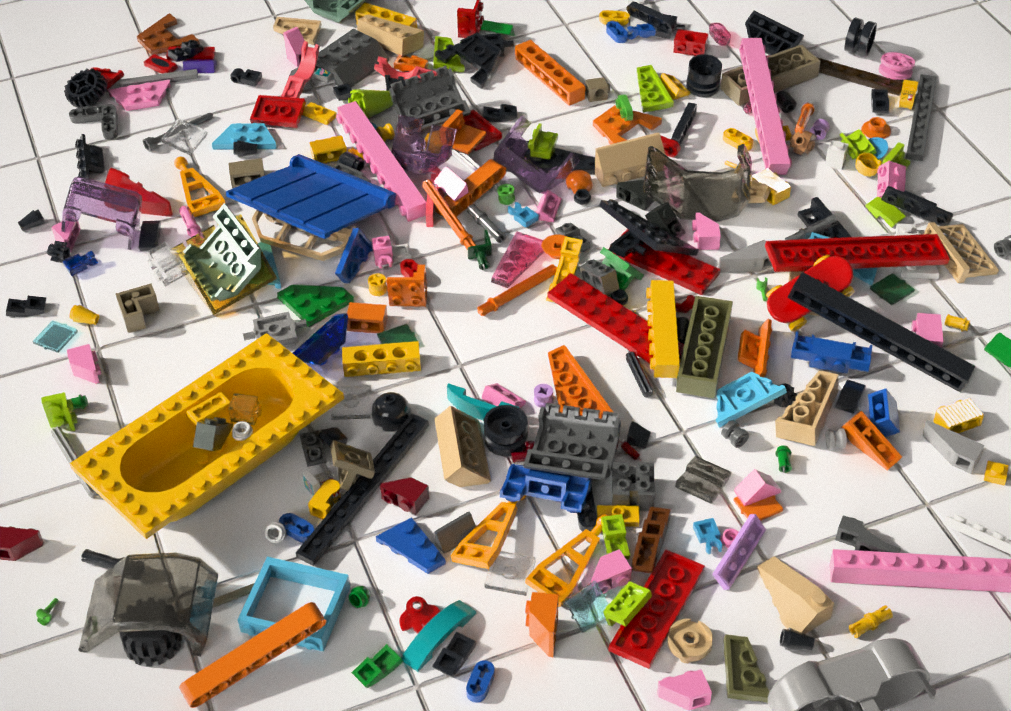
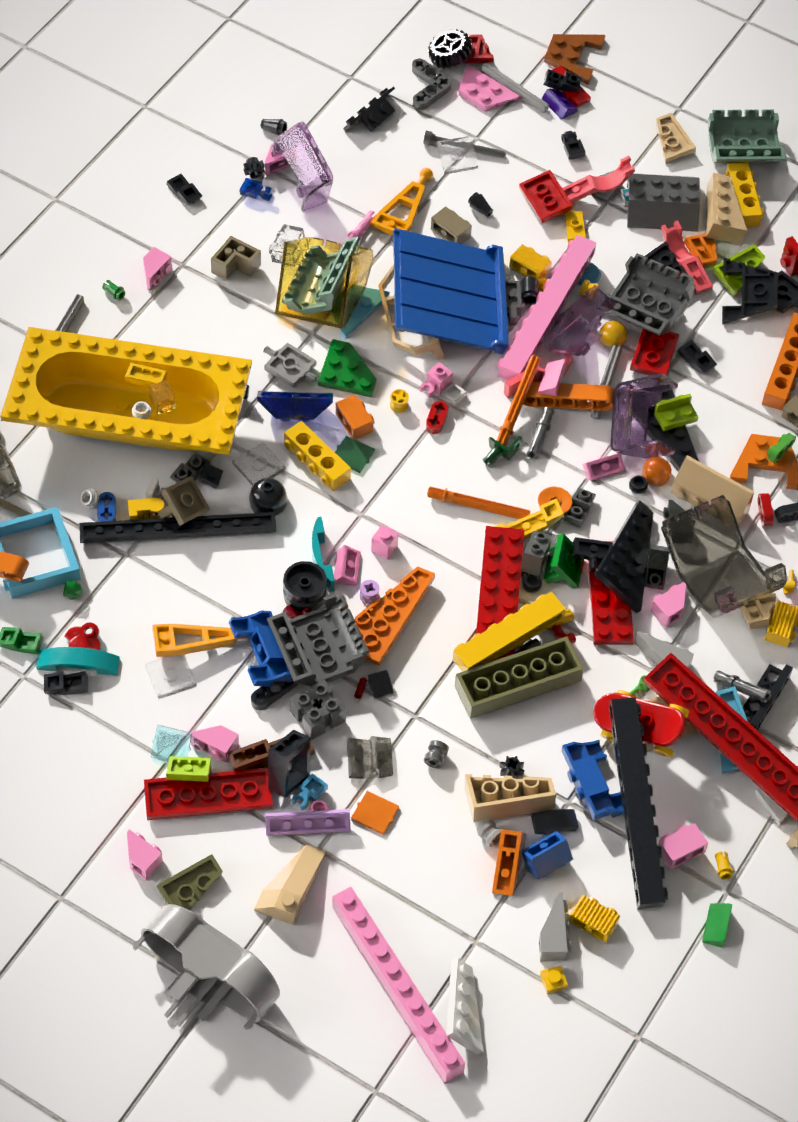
camera: 50 degrees right, 10 degrees up
(55, 336) = (171, 229): clear light blue piece -> none
(59, 410) = (92, 286): lime bracket -> none
(83, 315) = (203, 231): yellow cone -> none
(149, 235) = (322, 212): black slope -> none
(151, 201) = (350, 169): red wedge -> none
(160, 64) = (534, 76): red tile -> none
(211, 433) = (121, 393): pearl dark grey slope -> none
(248, 132) = (499, 194): medium azure wing -> none
(293, 45) = (638, 151): bright pink slope -> none
(342, 92) = (616, 226): black plate -> none
(353, 255) = (411, 363): blue wing -> none
(371, 101) = (612, 253): lime cone -> none
(405, 493) = (191, 559): dark red slope -> none
(408, 290) = (410, 432): orange bracket -> none
(412, 544) = (147, 595): blue wing -> none
(454, 532) = (177, 613): dark grey slope -> none
(461, 448) = (264, 568): tan slope -> none
(466, 136) = (628, 344): orange bracket -> none
(475, 680) = (54, 714): blue beam -> none
(505, 360) = (384, 542): none -> bright pink brick
(506, 194) = (590, 425): bright green wheel -> none
(517, 259) = (514, 481): clear pink wing -> none
(523, 216) = (574, 454): dark azure plate -> none
(543, 620) = (129, 722): orange slope -> none
(546, 582) = (174, 708): light orange plate -> none
(615, 534) = (255, 725): lime slope -> none
(629, 513) = (282, 716): yellow plate -> none
(639, 374) = (447, 653): black axle -> none
(683, 525) = (294, 747): none -> black window
(687, 651) = (196, 844): tan plate -> none
(745, 396) = (482, 738): medium azure wing -> none
(754, 348) = (548, 716): orange bracket -> none
(756, 488) = (388, 801): bright pink slope -> none
(783, 454) = (438, 805): green pin -> none
(795, 640) = (246, 907): black cone -> none
(855, 534) = (392, 898): dark grey slope -> none
(870, 621) = (307, 954): yellow pin -> none
(892, 289) = (729, 792): clear green piece -> none

